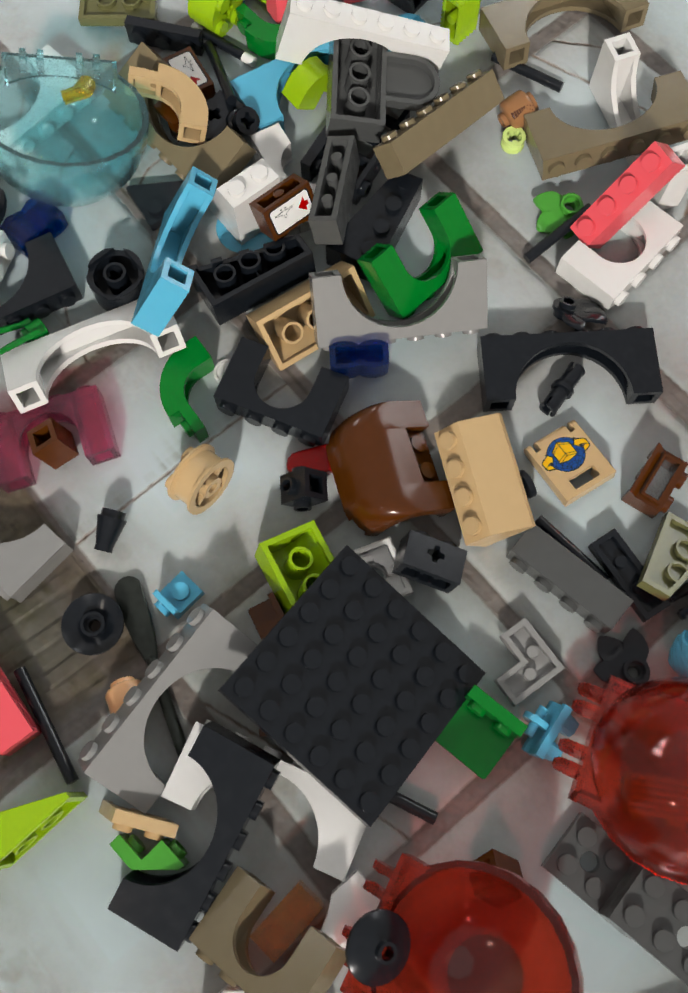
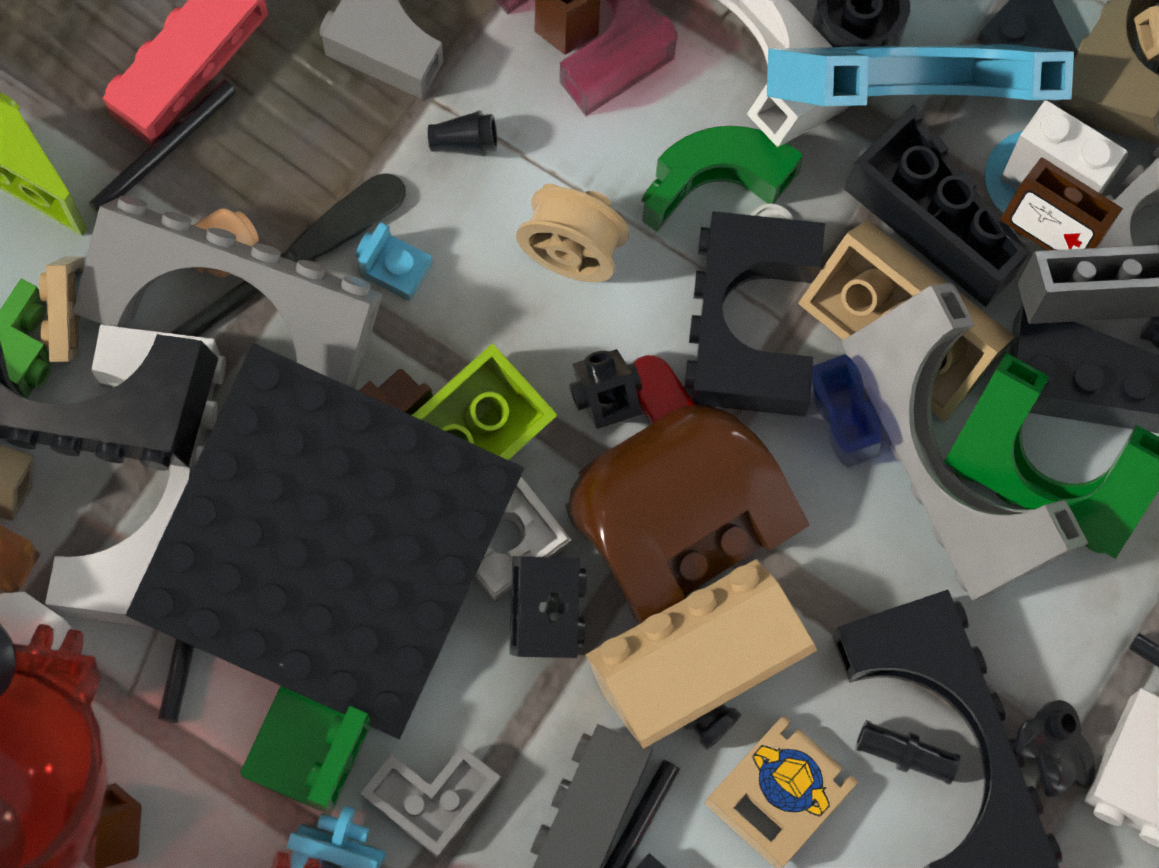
camera: 70 degrees right, 0 degrees up
(78, 620) = (317, 140): black dish -> none

